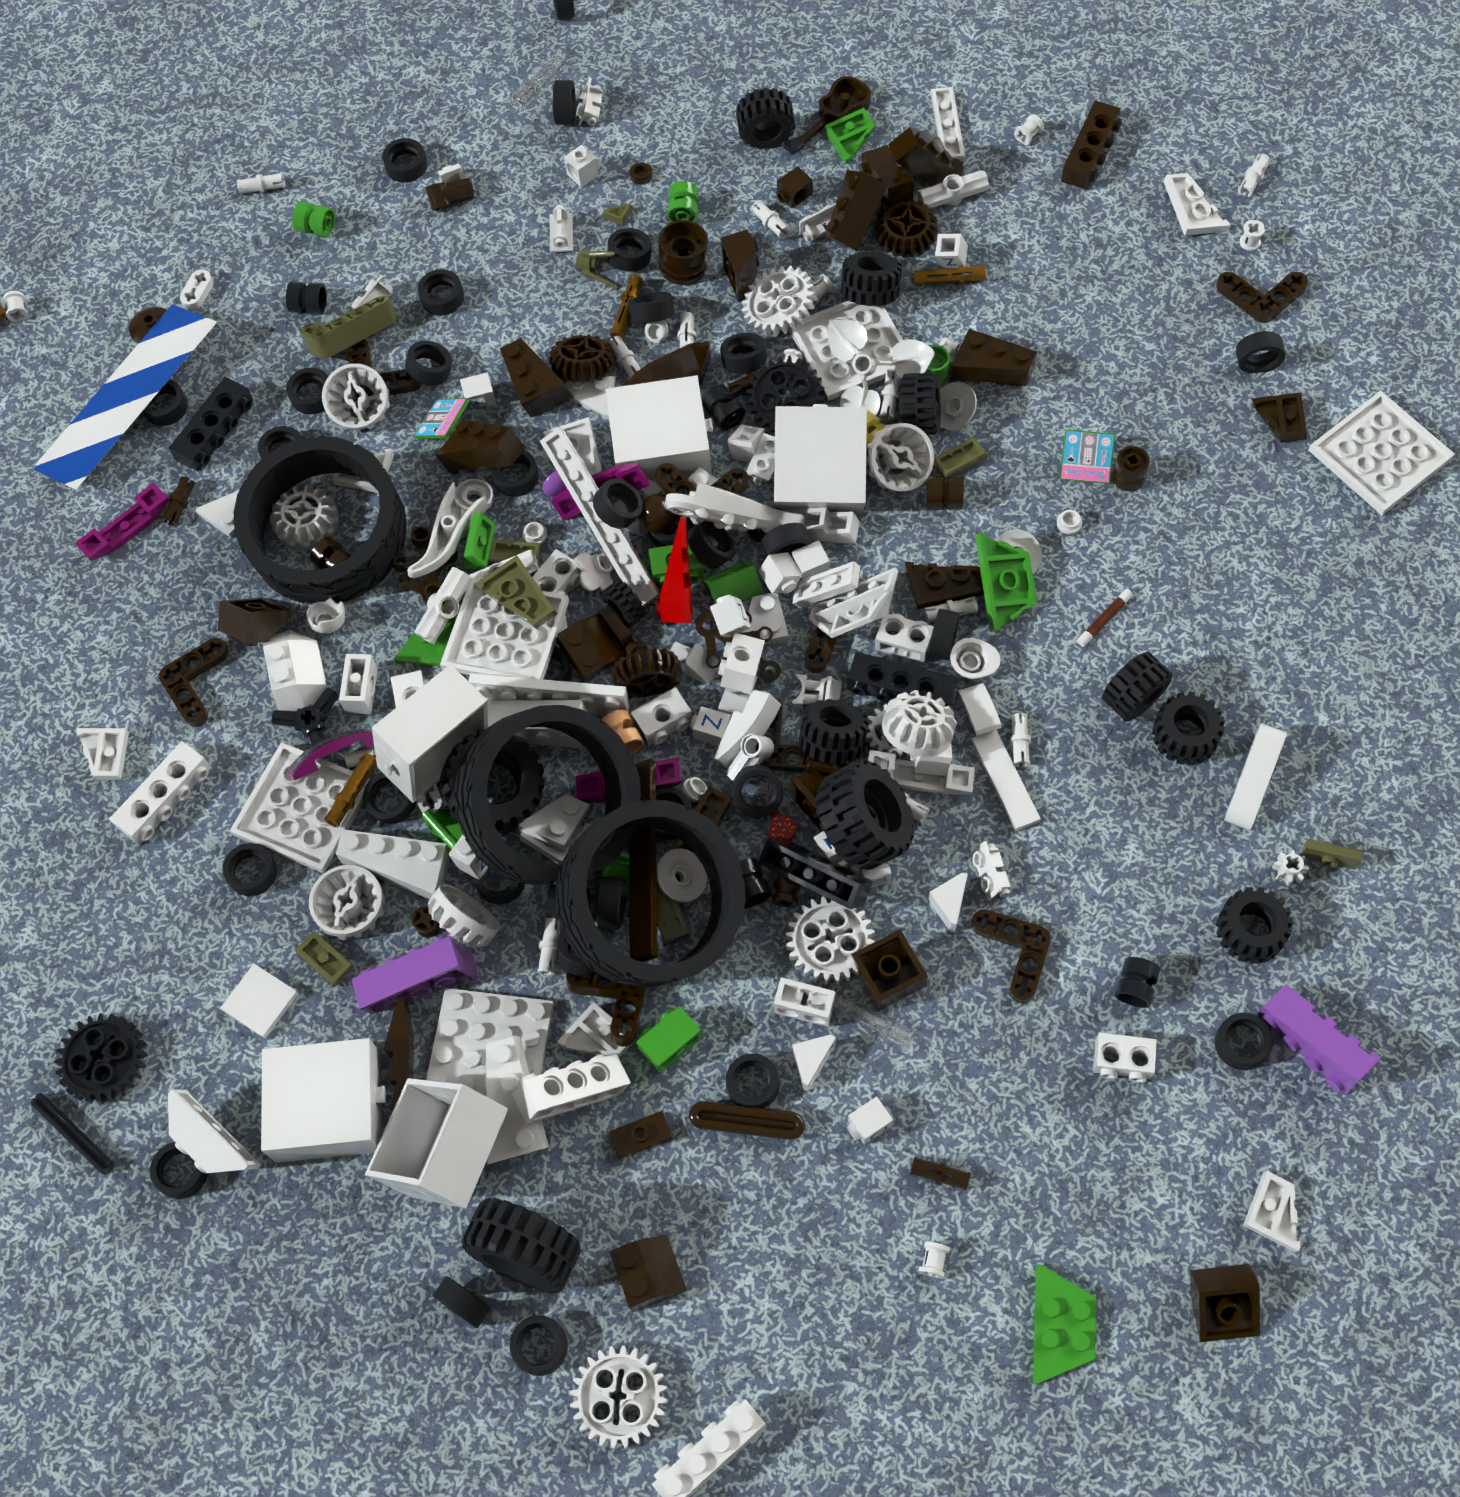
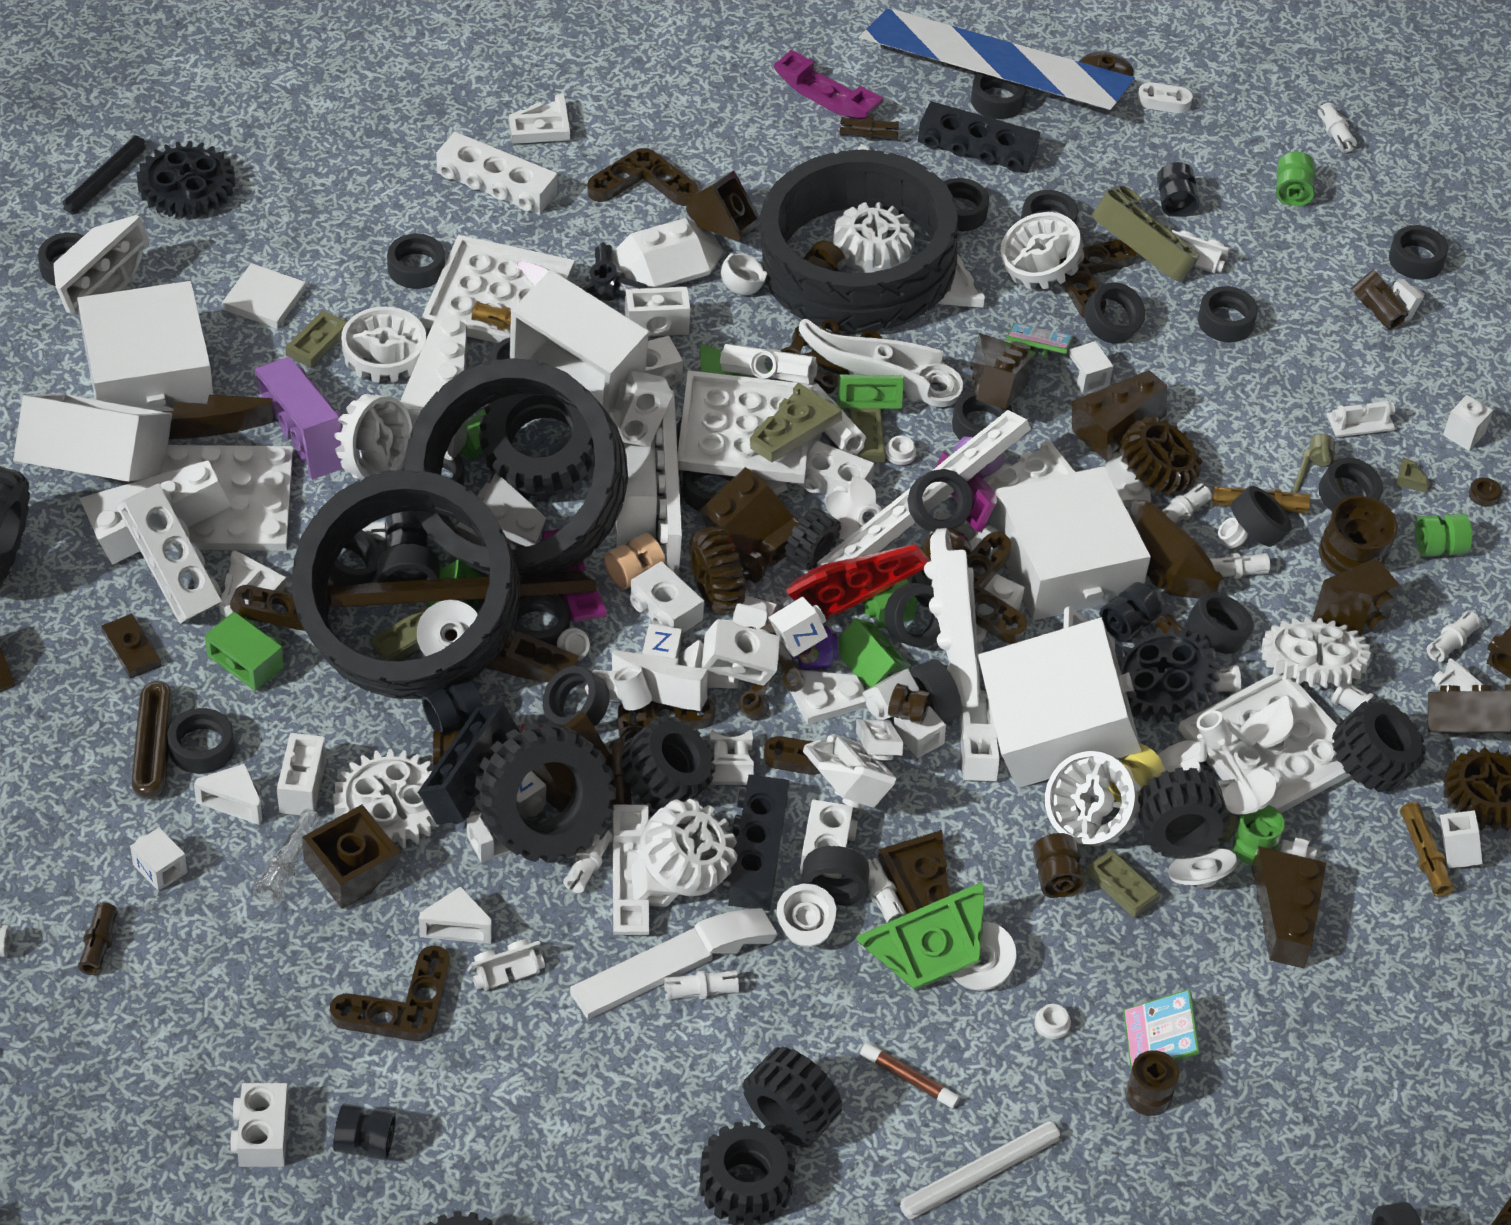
camera: 70 degrees right, 15 degrees down
(494, 689) = (644, 410): none -> white brick
(803, 559) = (909, 703): none -> dark brown wheel
(1185, 586) = (979, 1170): none -> white axle

